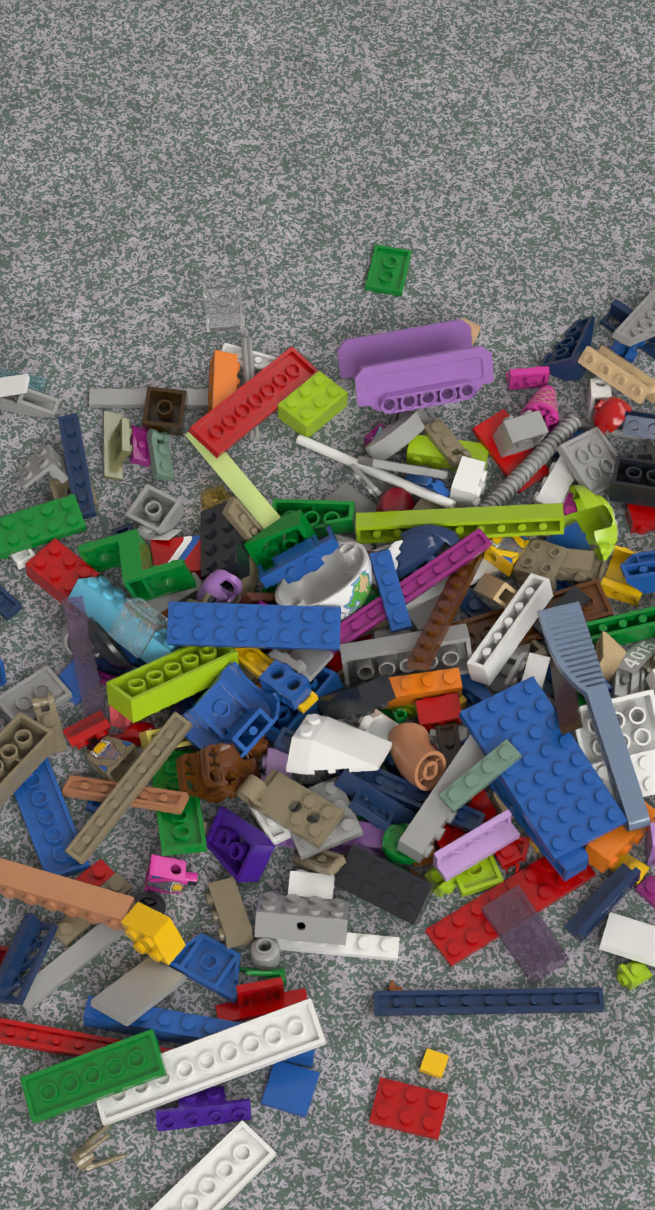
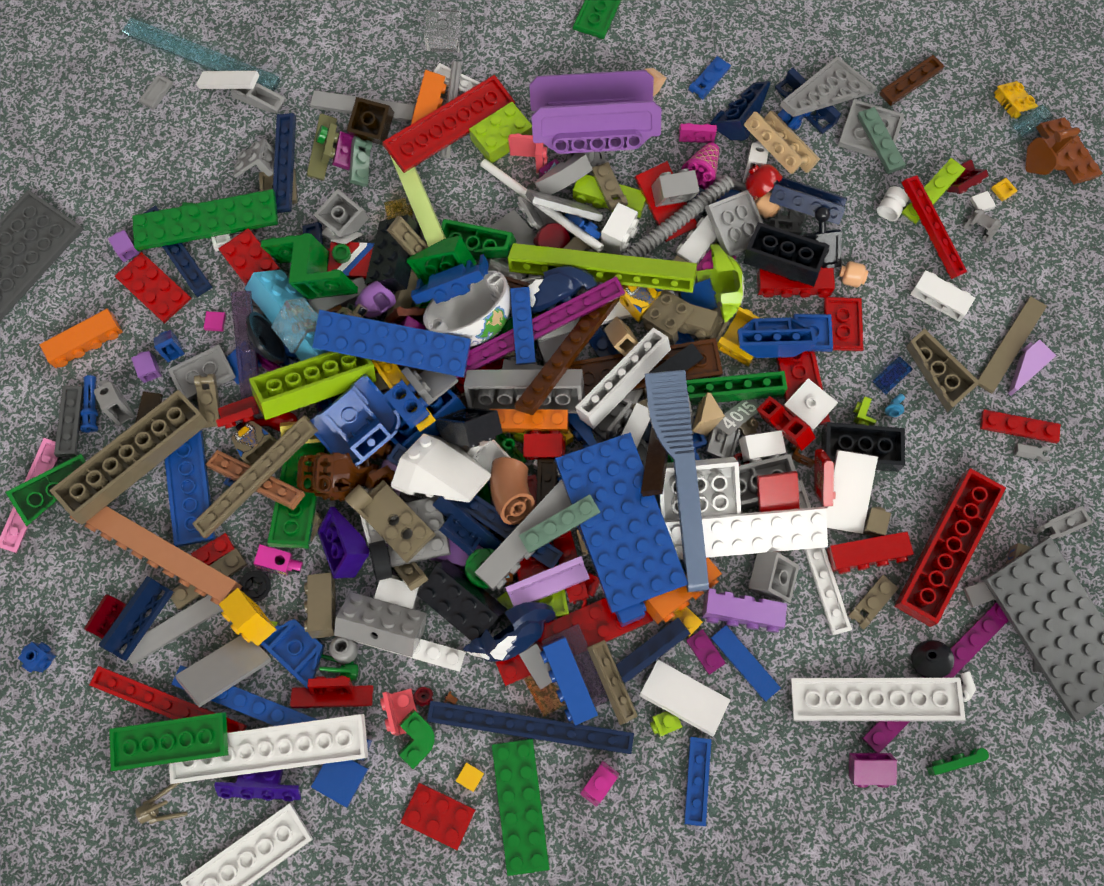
camera: 15 degrees right, 15 degrees up
(33, 643) = (214, 321): none -> dark pink tile
(113, 431) = (322, 134): none -> green tile
(166, 550) = (341, 253): none -> green tile
(264, 767) = (376, 476): none -> reddish brown bracket
(289, 851) = (380, 560): none -> black tyre
(344, 1008) = (397, 707): none -> coral bracket
(347, 415) = (524, 146): none -> coral bracket
(363, 984) = (418, 696): none -> dark red plate
(372, 1029) = (421, 741): none -> green plate
(445, 917) = (525, 630): none -> dark blue animal
(483, 936) = (536, 666): none -> light grey tile
(494, 965) = (545, 698): none -> clear orange panel
(496, 1084) = (520, 807): none -> green plate
(521, 941) = (569, 680): none -> blue brick
(527, 321) = (709, 77): none -> blue plate
(567, 940) = (612, 682): none -> dark tan tile
(578, 1040) = (599, 784): none -> dark pink torso
(620, 442) = (766, 208): none -> light nougat head

